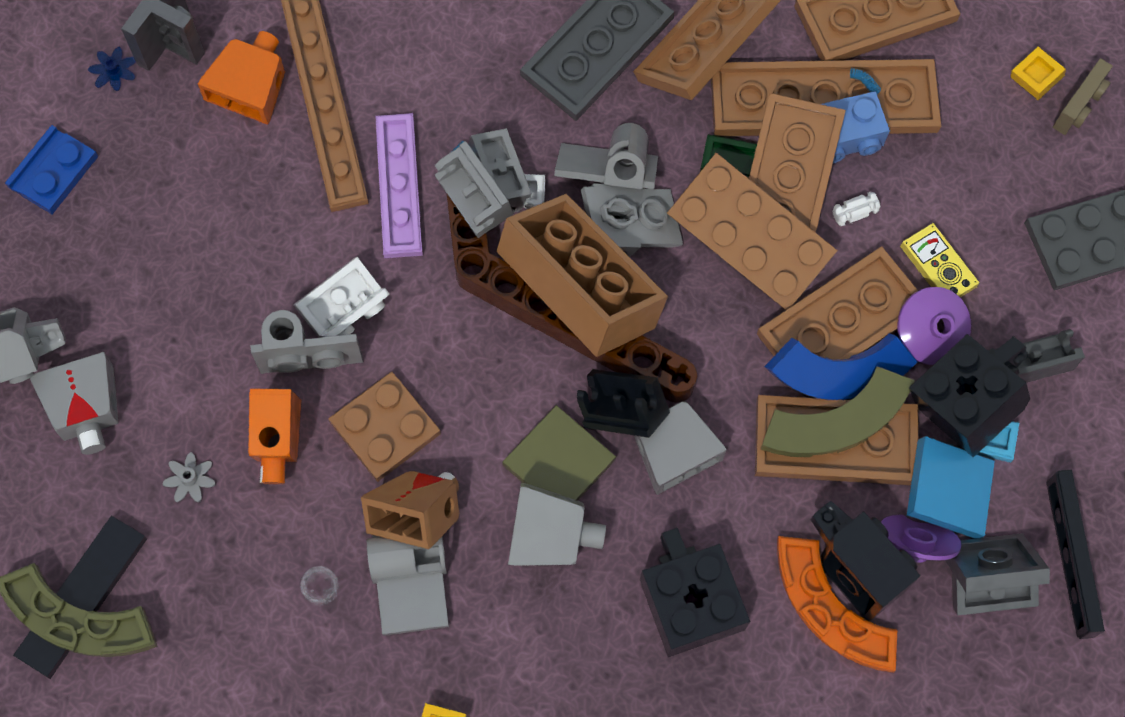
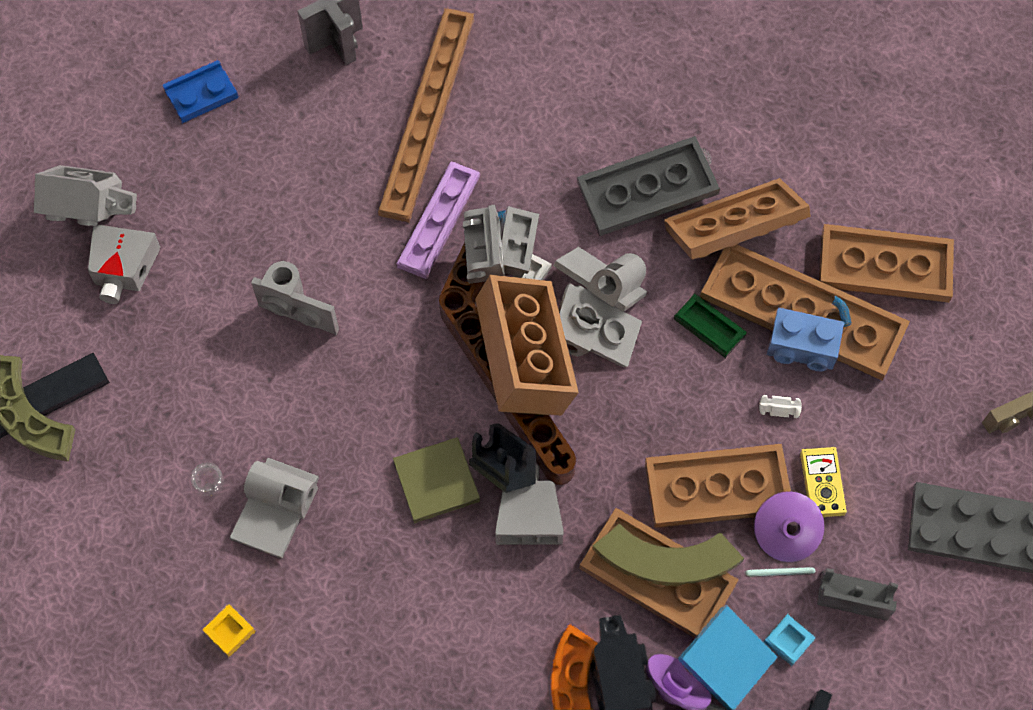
camera: 30 degrees right, 5 degrees down
(112, 69) = (285, 41): clear blue plant -> none
(191, 484) = (163, 355): light grey plant -> none
(245, 78) = (373, 90): orange torso -> none
(272, 414) = (238, 348): orange torso -> none
(342, 300) = (345, 281): white bracket -> none
(384, 426) = (323, 388): medium nougat plate -> none
(412, 508) = (303, 455): medium nougat torso -> none
(550, 529) = (395, 524): light grey torso -> none
(704, 575) = (473, 612): black hinge -> none
(752, 231) = (682, 382): medium nougat plate -> none
(797, 154) = (735, 354): medium nougat plate -> none
(837, 377) = (685, 526): blue tile -> none
(974, 391) = (786, 590): black hinge -> none
(1038, 73) = (992, 373): yellow plate -> none

